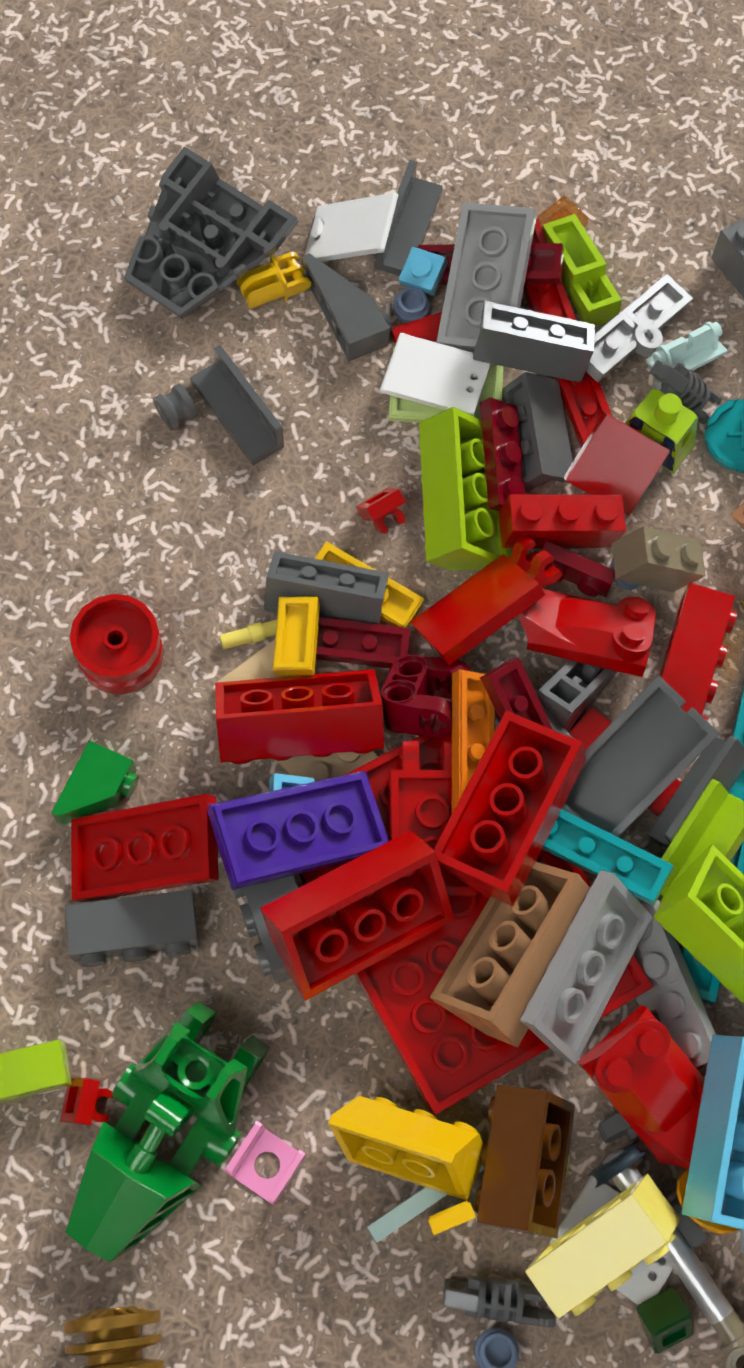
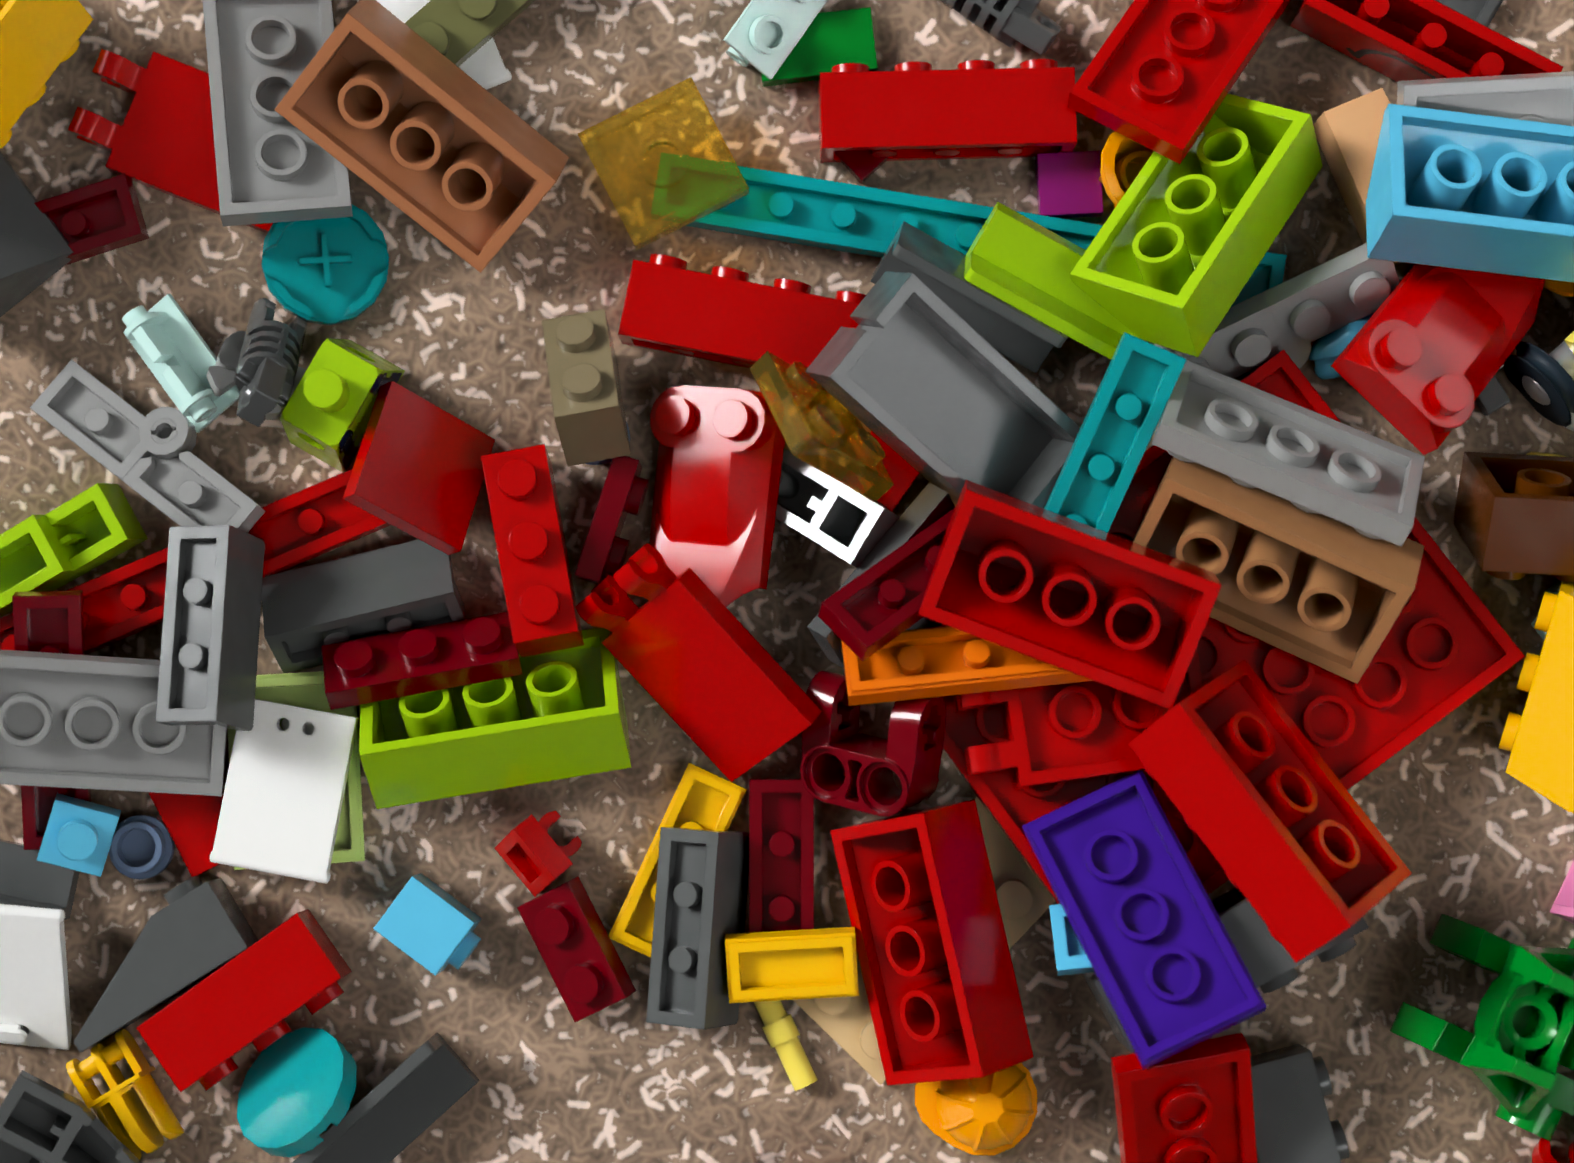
camera: 90 degrees left, 15 degrees up
(192, 743) = (980, 1113): none -> light orange piece
(264, 362) = (296, 1092): none -> teal tile
(317, 346) = (246, 1002): none -> red brick
(322, 523) = (576, 949): none -> dark red plate
(347, 444) = (430, 925): none -> medium azure brick
(621, 681) = (820, 427): none -> clear yellow plate

